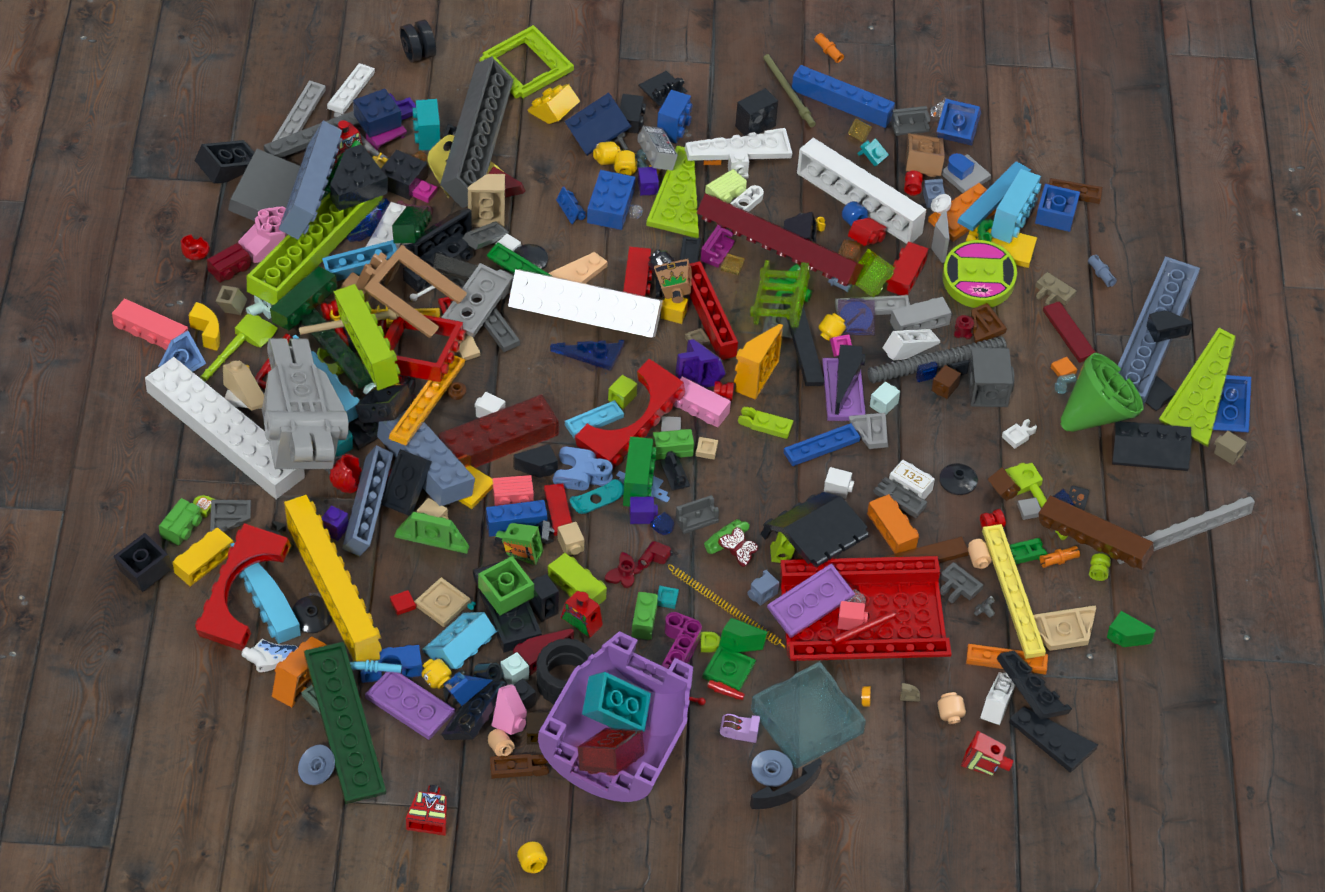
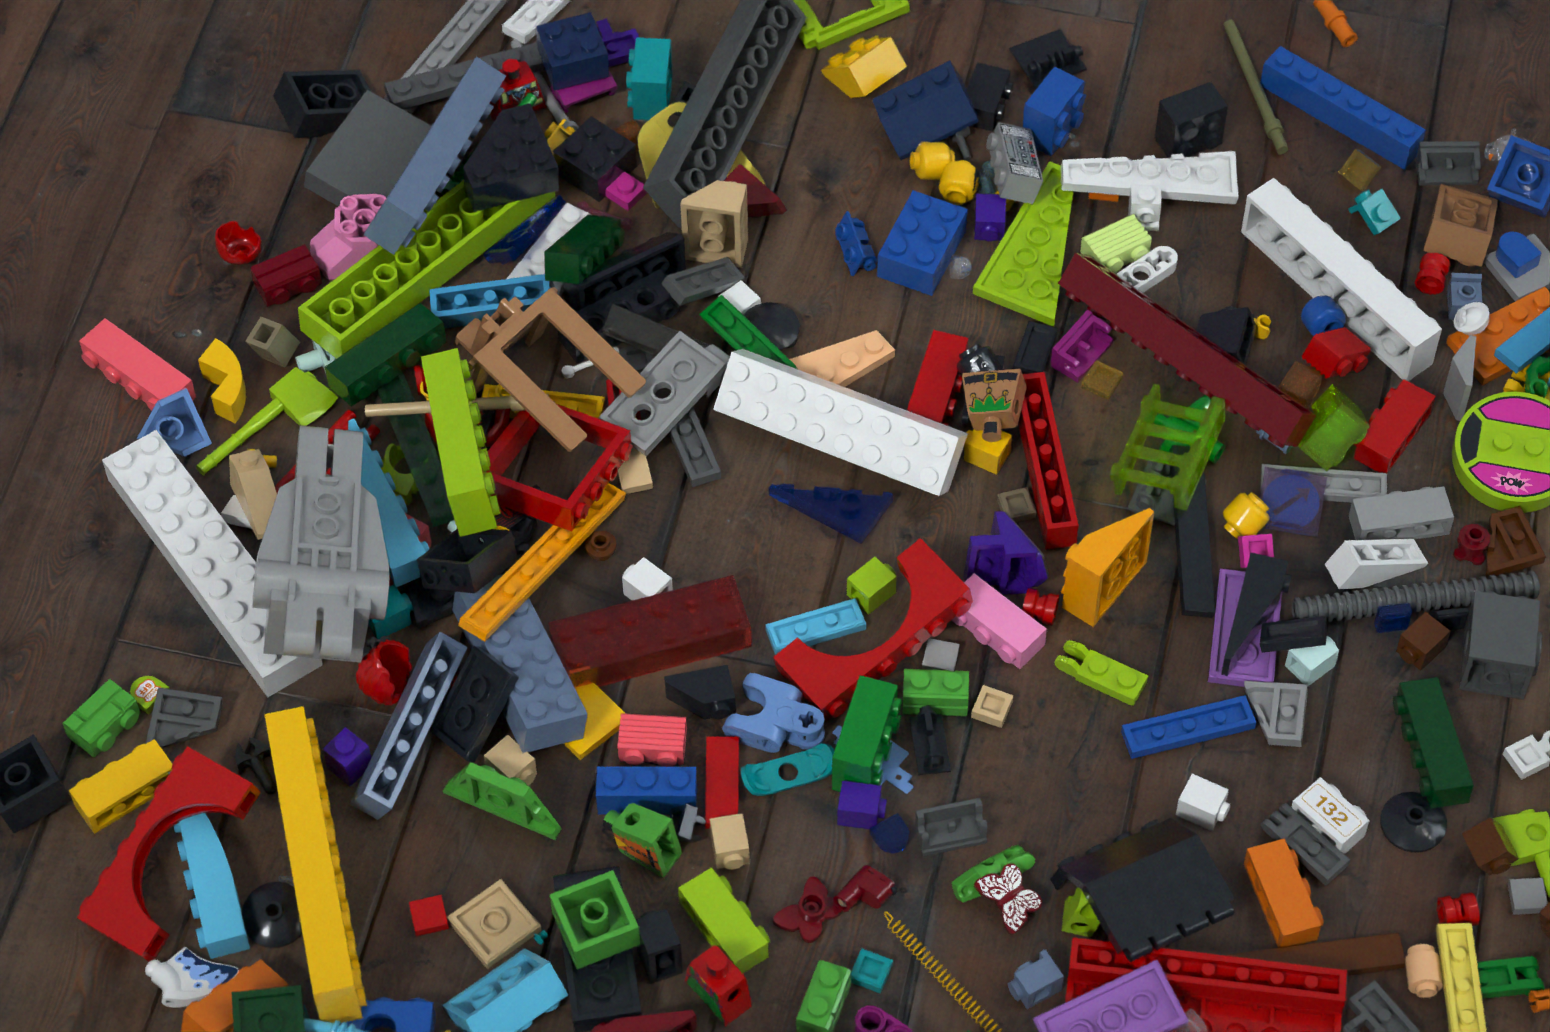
camera: 15 degrees right, 5 degrees up
(872, 385) = (1293, 634): none -> black tile
(962, 434) = (1433, 743): none -> dark green brick

